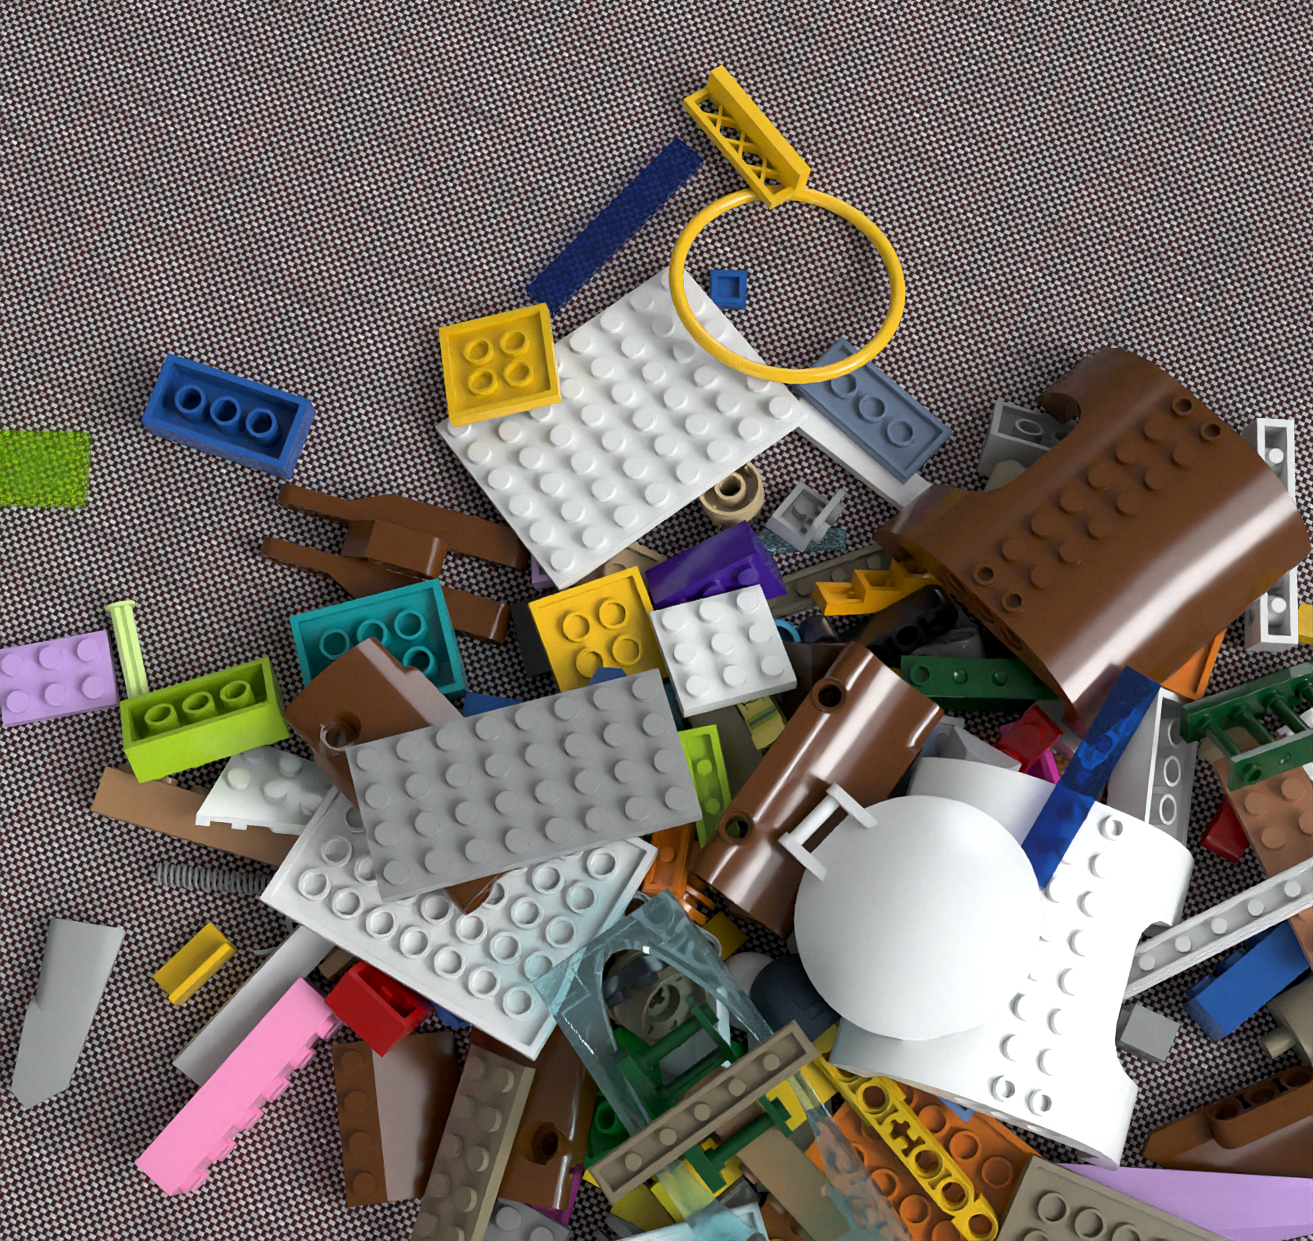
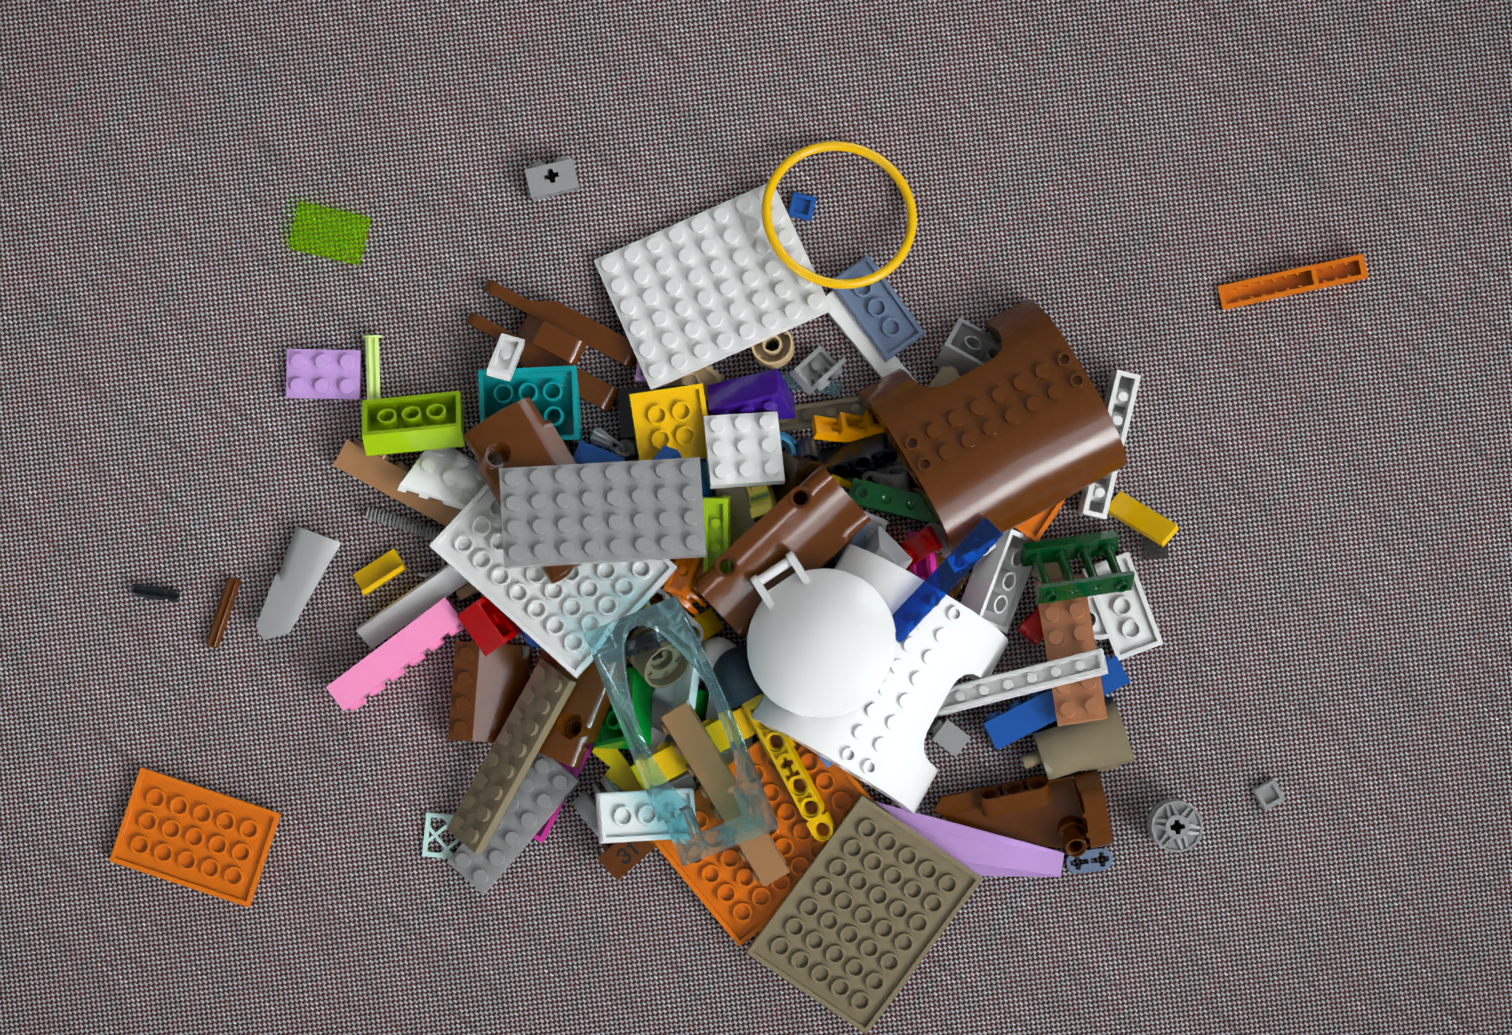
camera: 15 degrees right, 10 degrees up
(228, 416) = (462, 228): blue brick -> none
(327, 588) = (505, 357): none -> white plate
(369, 324) = (542, 188): none -> light grey brick
(499, 365) = (642, 230): yellow plate -> none
(499, 685) = (626, 448): none -> light grey piece
(615, 226) = (737, 148): clear blue tile -> none
(662, 1098) = (647, 717): dark green fence -> none
(703, 1111) = (669, 730): dark tan tile -> none
(757, 131) = (843, 105): yellow fence -> none

